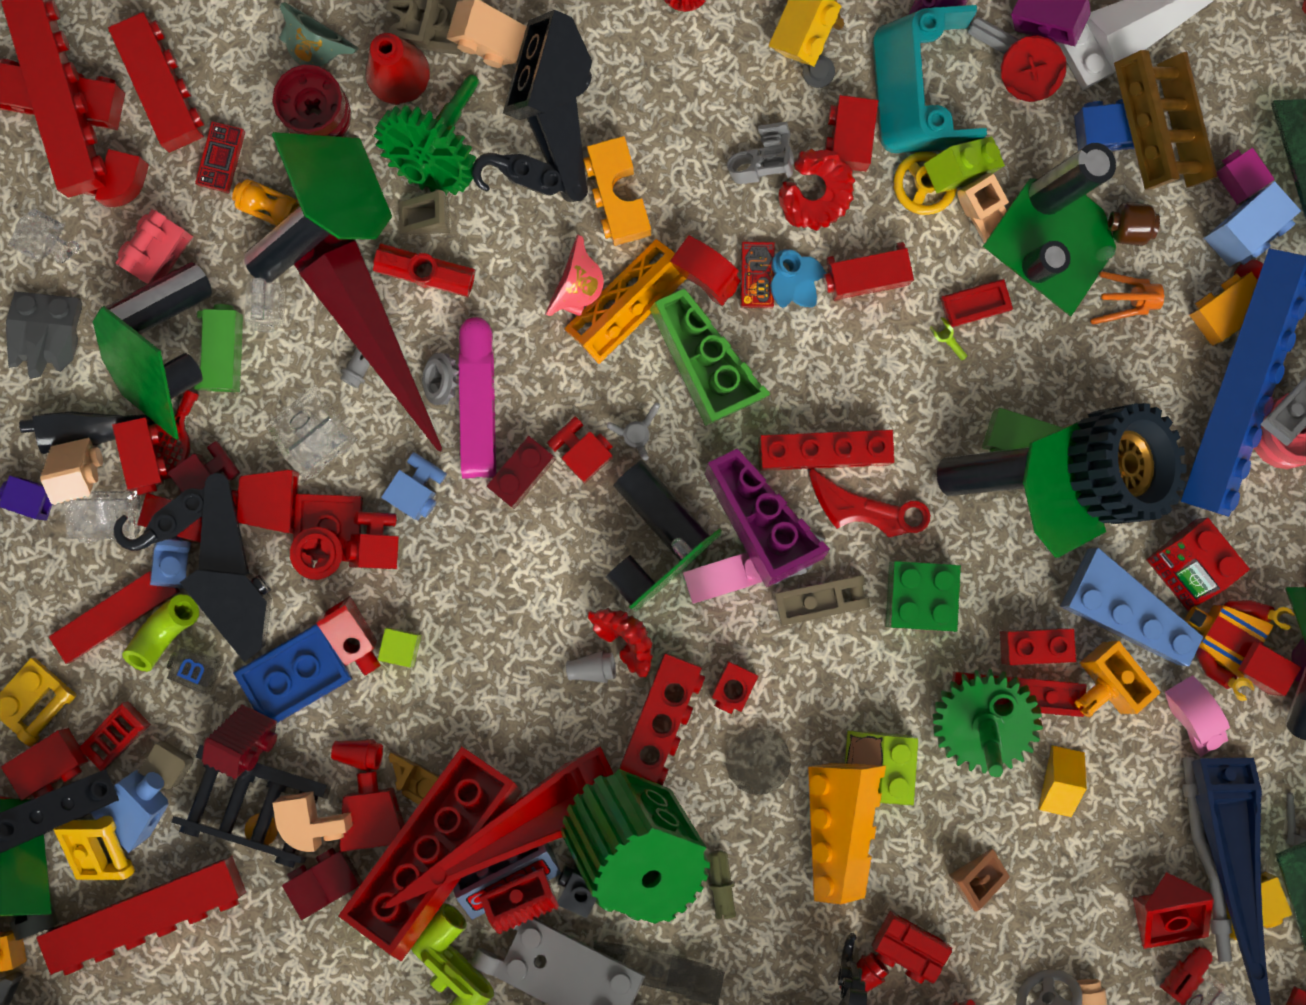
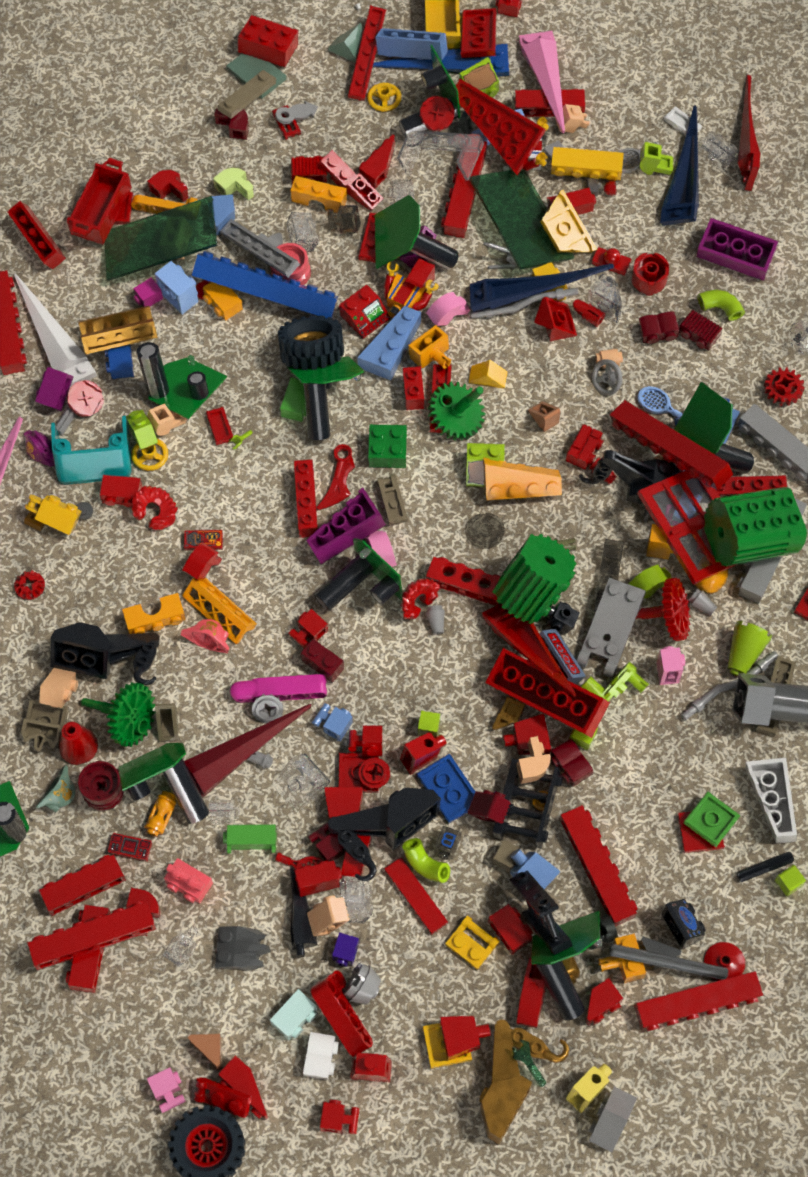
camera: 85 degrees left, 20 degrees down
(85, 853) = (566, 898): yellow plate -> none
(133, 718) = (495, 886): red slope -> none
(135, 361) = (261, 874): piece -> none
(169, 562) = (385, 860): medium blue bracket -> none
(358, 753) = (493, 747): red cone -> none
(404, 266) = (198, 732): red piece -> none
(519, 901) = (571, 643): red brick -> none
(637, 433) = (298, 599): light grey plant -> none
(705, 360) = (254, 562): bright green wedge -> none
(733, 672) = (442, 535): red brick -> none
(772, 159) = (135, 531): light grey piece -> none
(798, 282) = (205, 519): dark azure plate -> none
(868, 273) = (203, 479): red brick -> none
(1134, 223) = (174, 346): reddish brown head -> none
(1143, 297) = (216, 342): orange plant -> none

